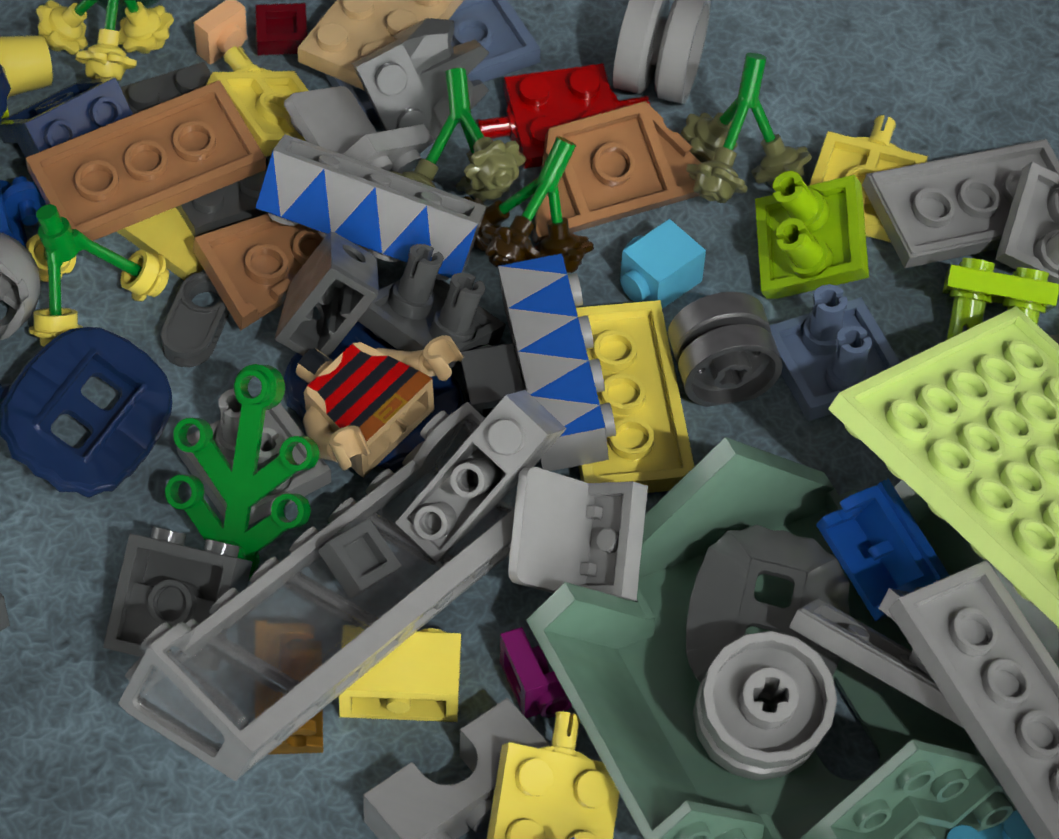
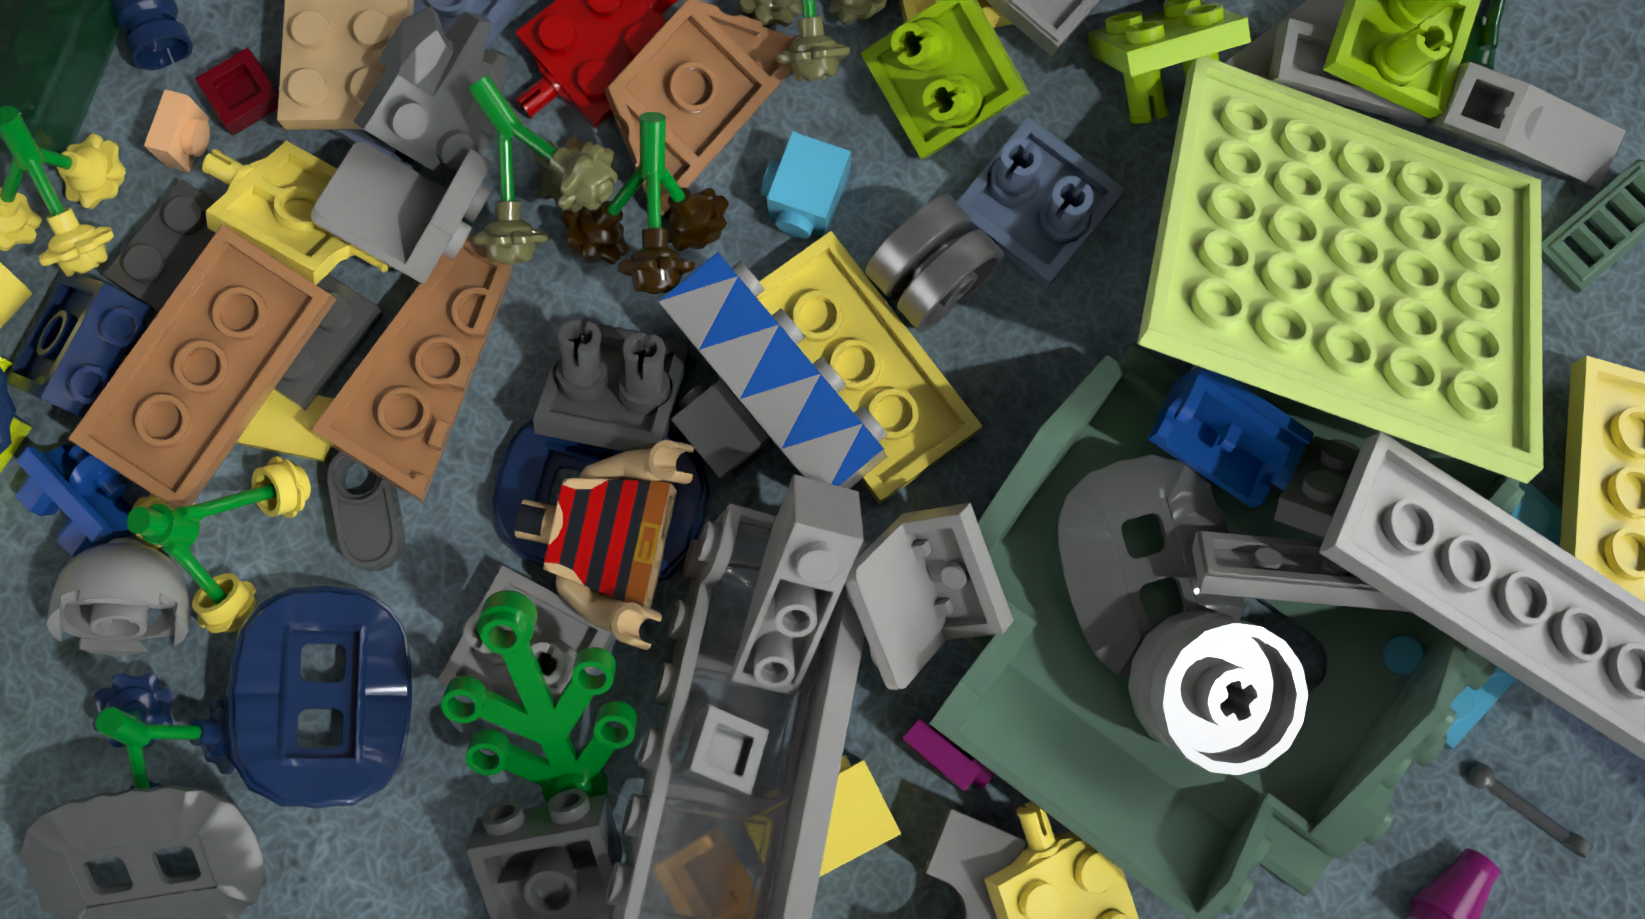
camera: 25 degrees left, 25 degrees up
(340, 283) = (500, 431): dark grey torso -> none
(367, 205) = (477, 296): light grey brick -> none

